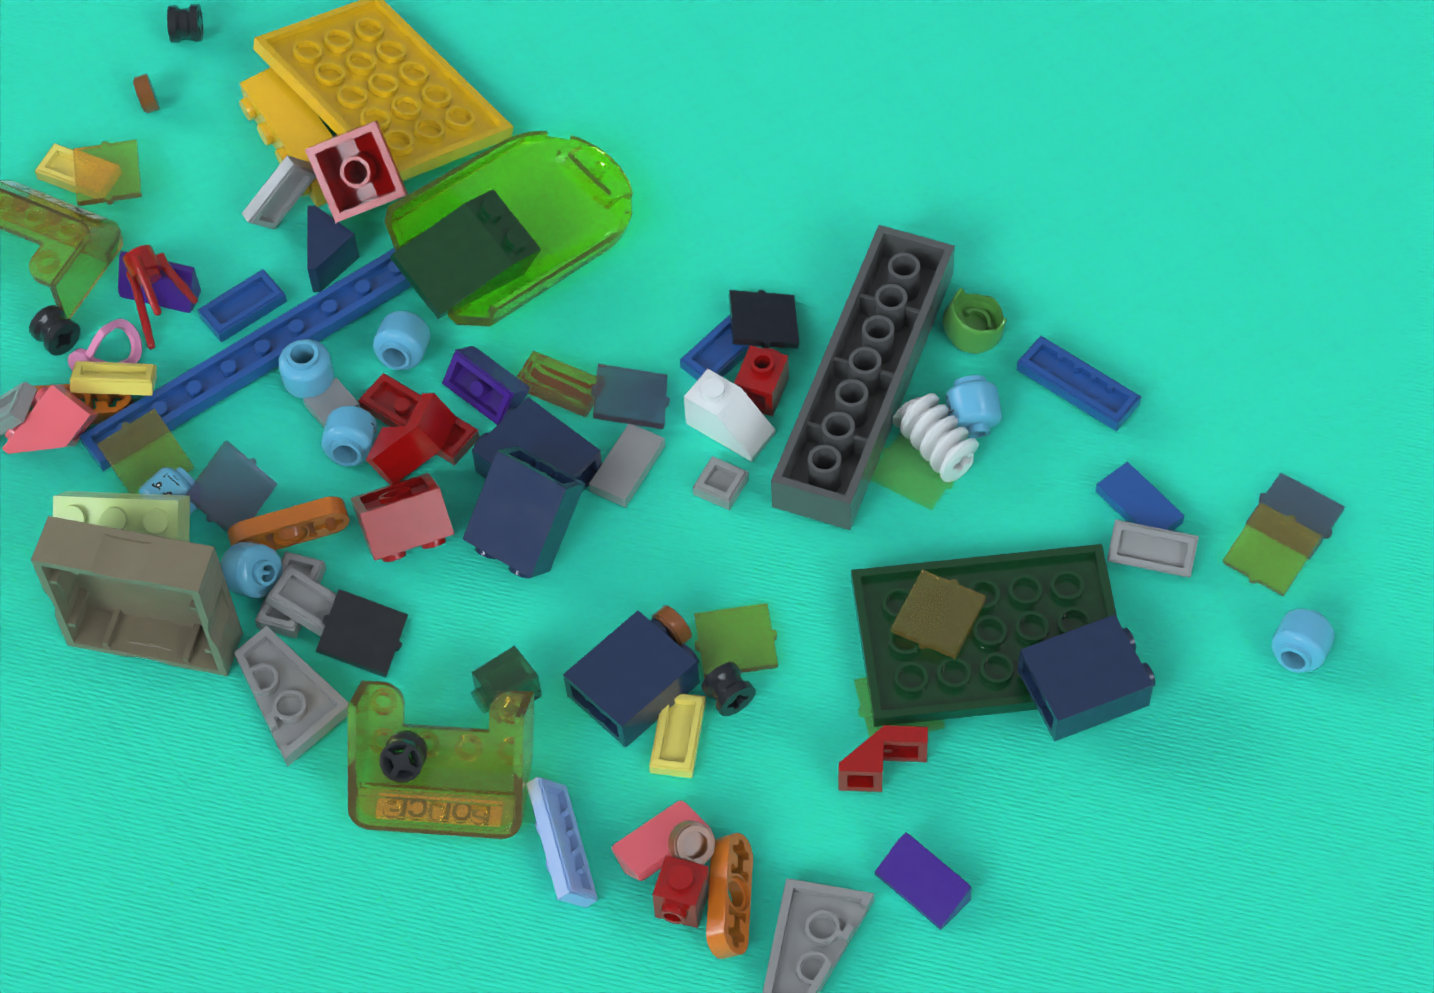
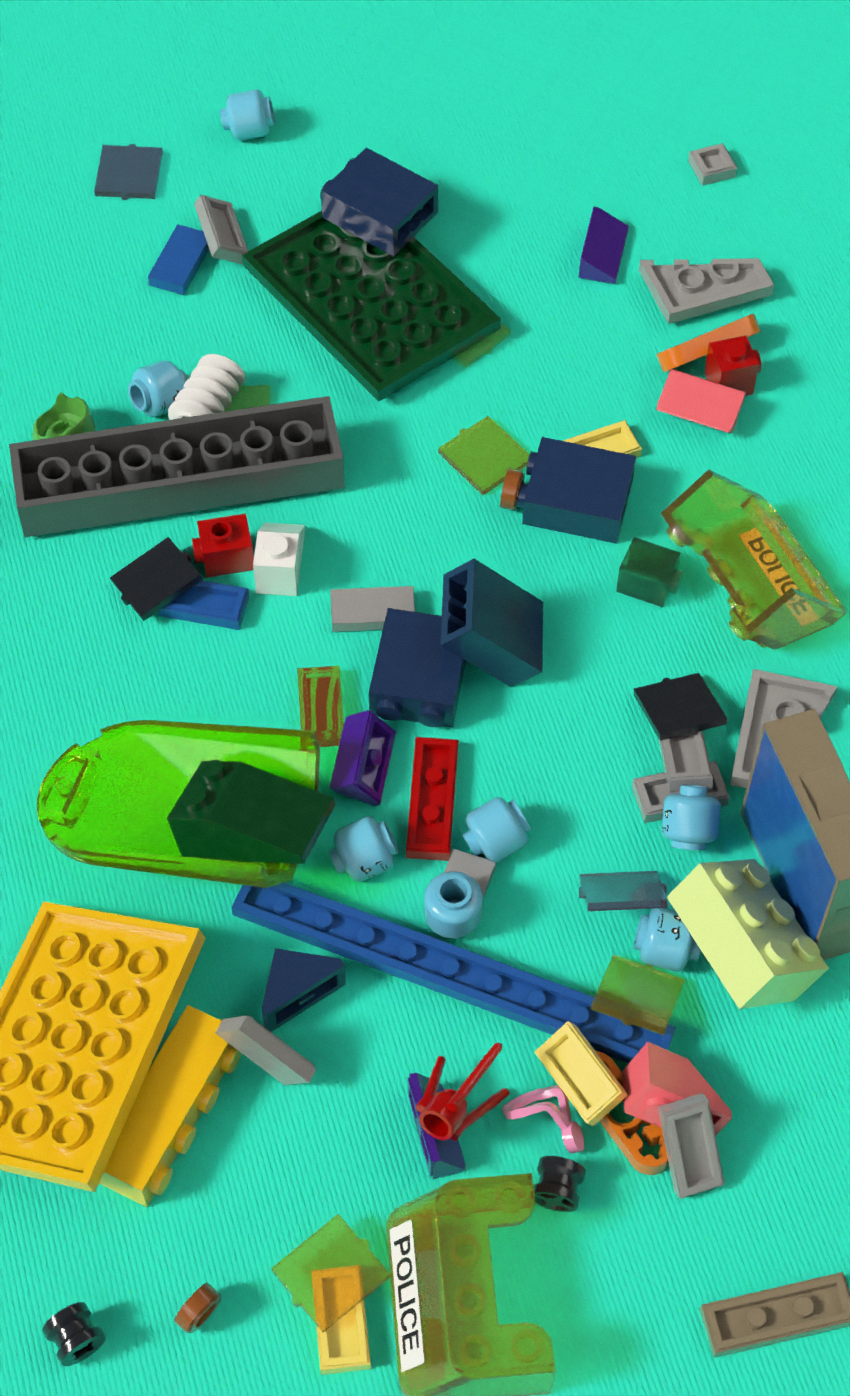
camera: 125 degrees left, 0 degrees up
(242, 305) = (404, 1032): blue tile -> none
(306, 520) = (623, 825): orange beam -> none
(356, 171) = (211, 960): slope -> none
(399, 765) = (764, 595): black wheel -> none
(403, 517) = (545, 741): slope -> none
(407, 447) = (483, 774): red slope -> none
(561, 842) = (763, 454): light blue plate -> none
(630, 396) = (304, 636): piece -> none
(691, 842) = (695, 368): tile -> none
(720, 483) = (344, 535): light grey tile -> none
(728, 689) = (540, 421): black wheel -> none
(864, 766) = (531, 312): red slope -> none
(938, 614) = (380, 318): clear yellow piece -> none
(1078, 383) = (87, 338): blue plate -> none
(1272, 549) = (171, 169): piece -> none

